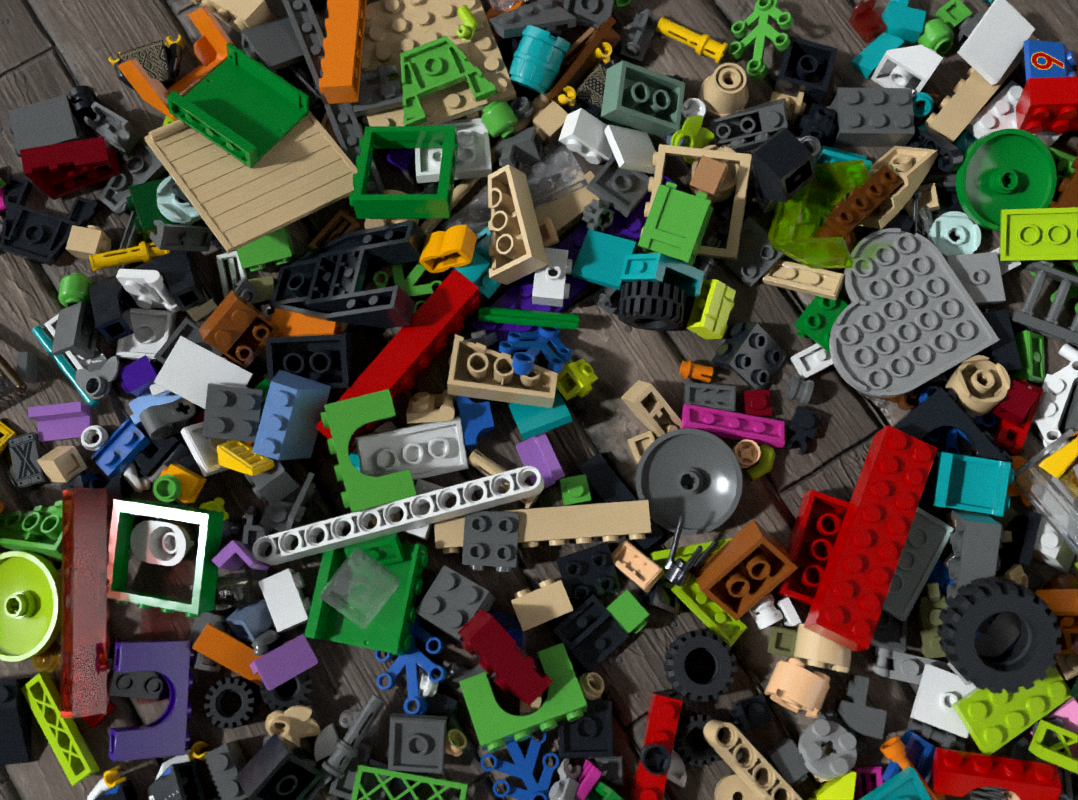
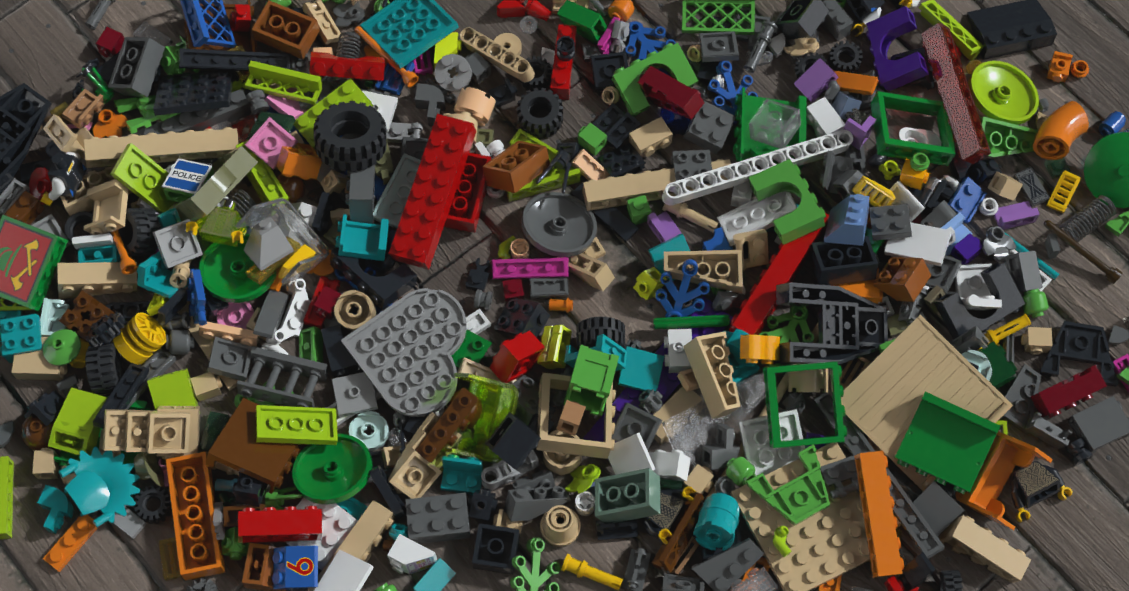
camera: 175 degrees right, 10 degrees down
(765, 291) = (516, 357): none -> red brick

